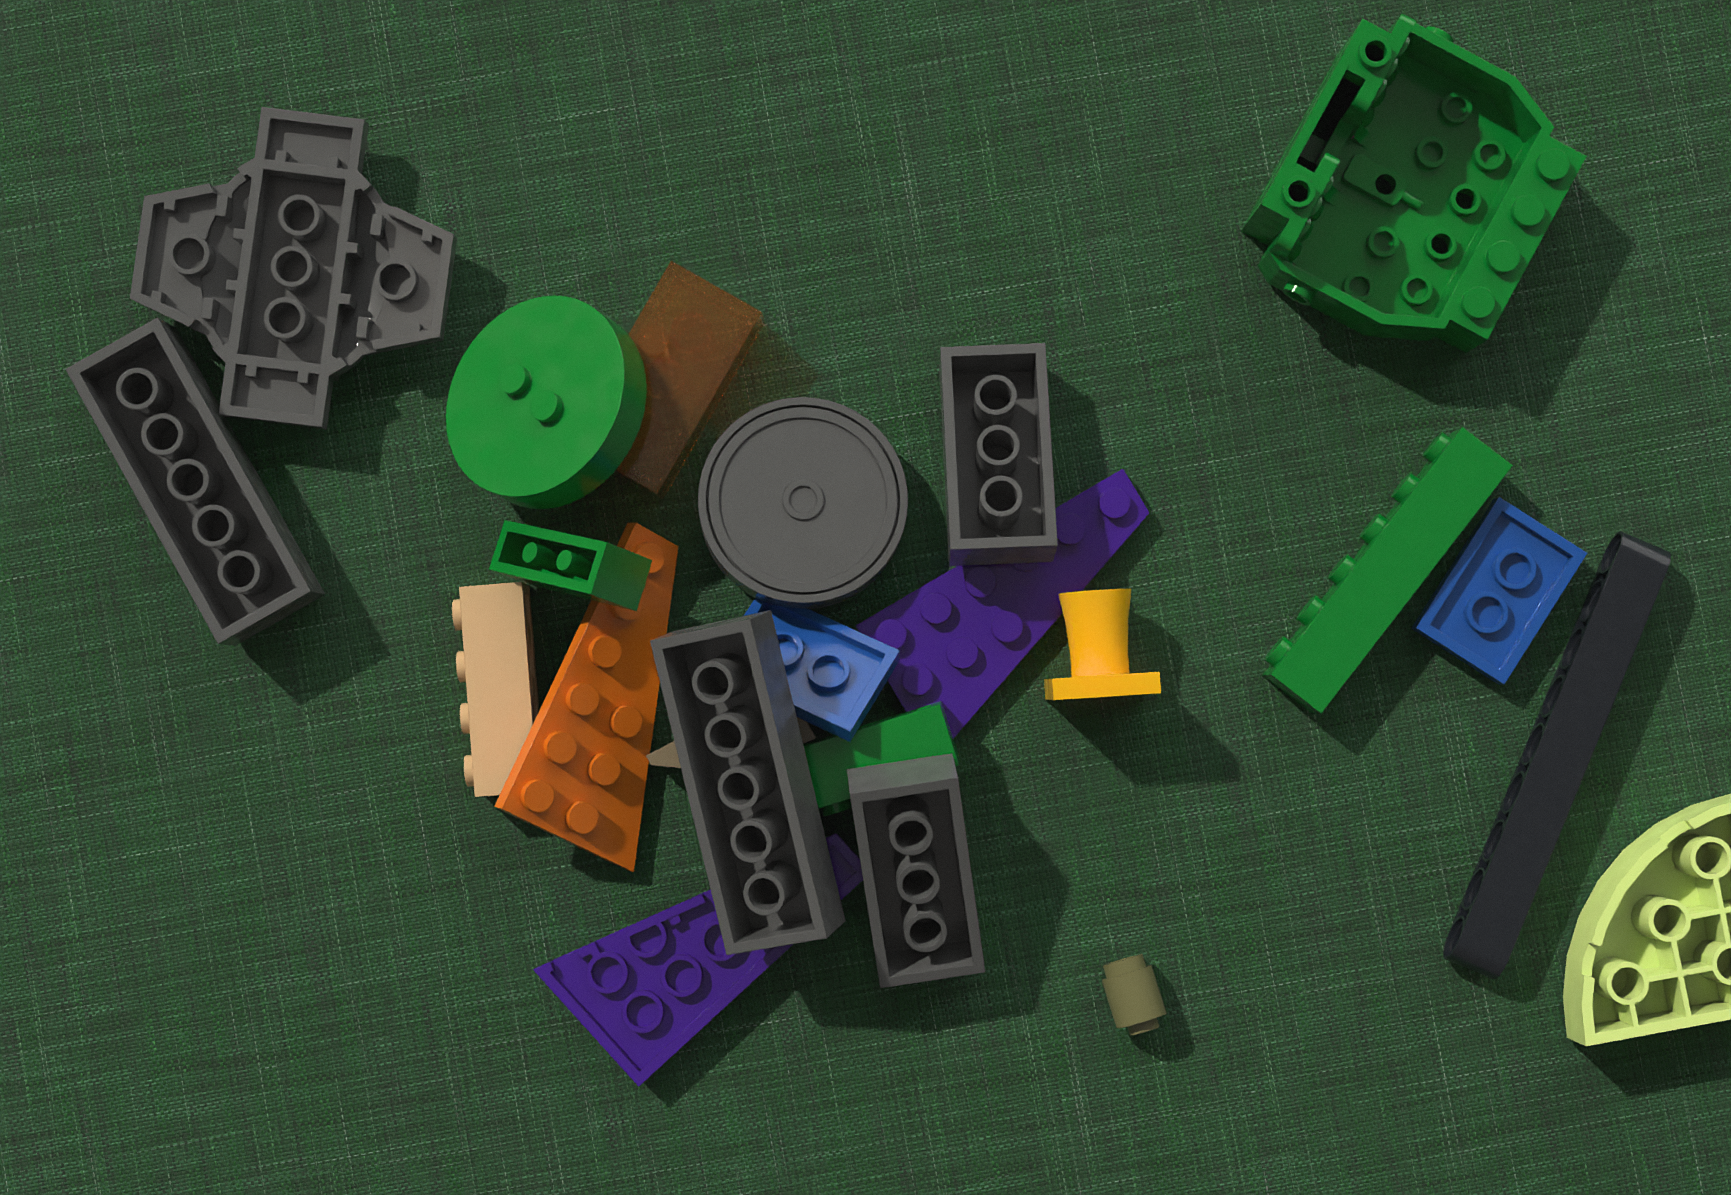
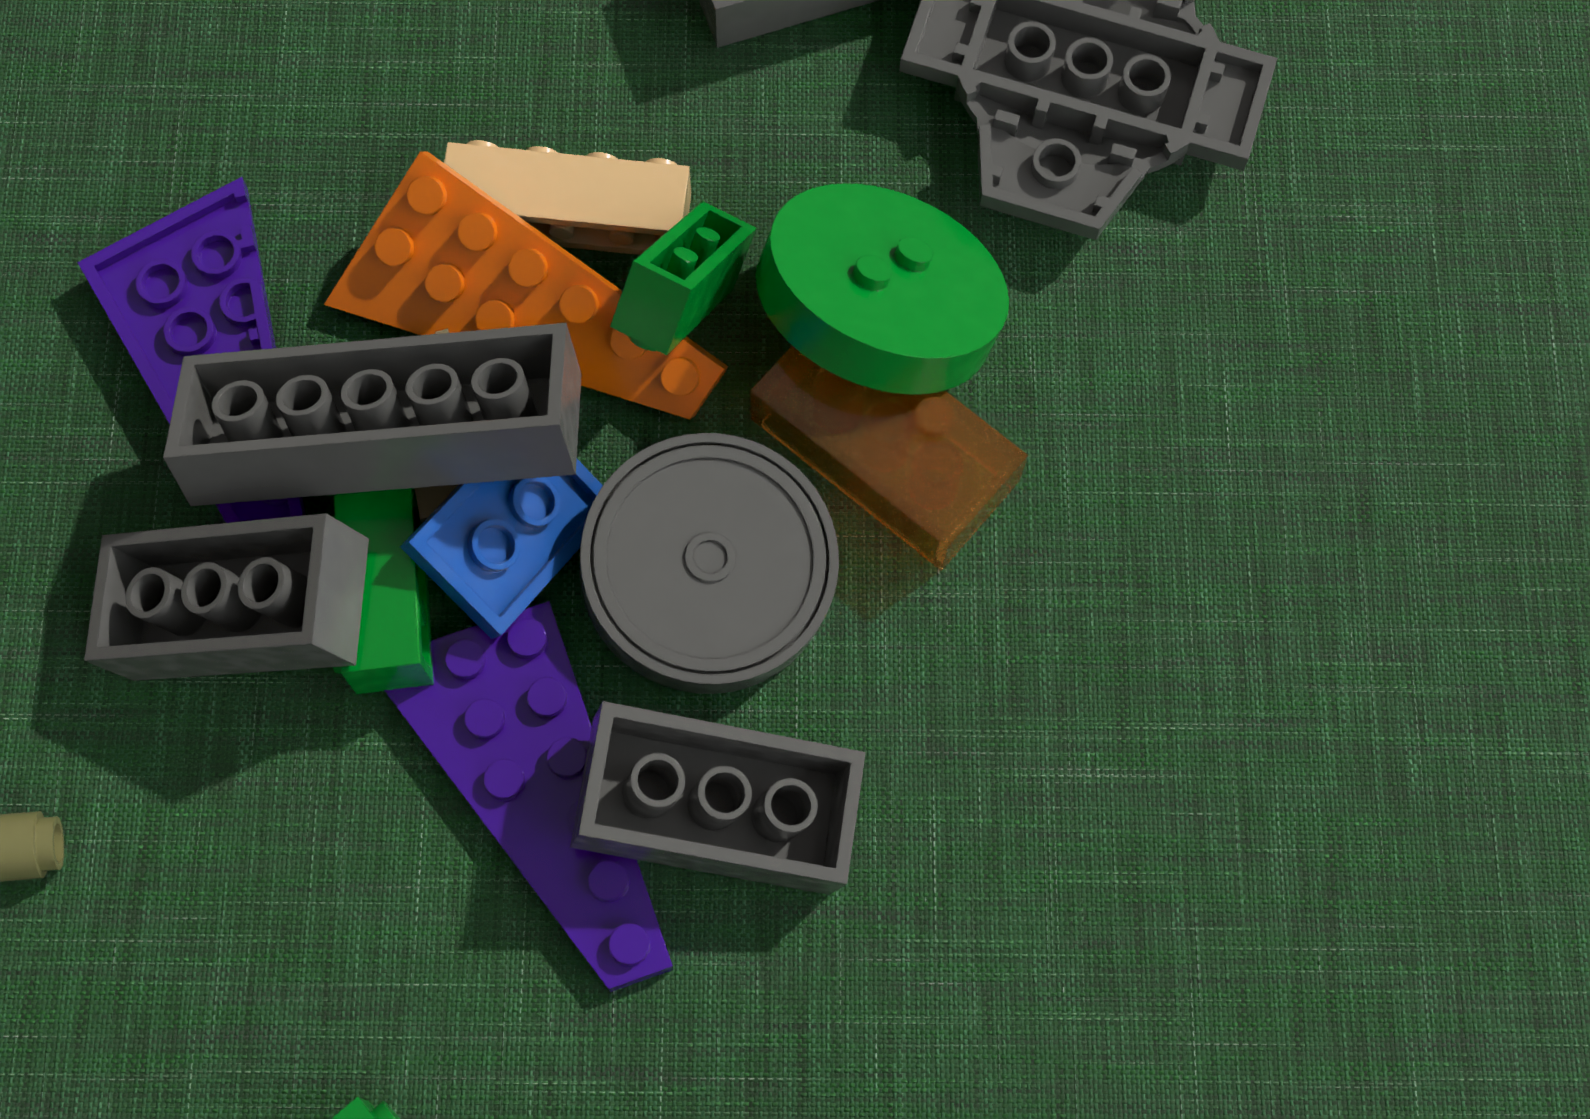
camera: 95 degrees right, 15 degrees down
(1099, 648) = (436, 877): yellow plant -> none

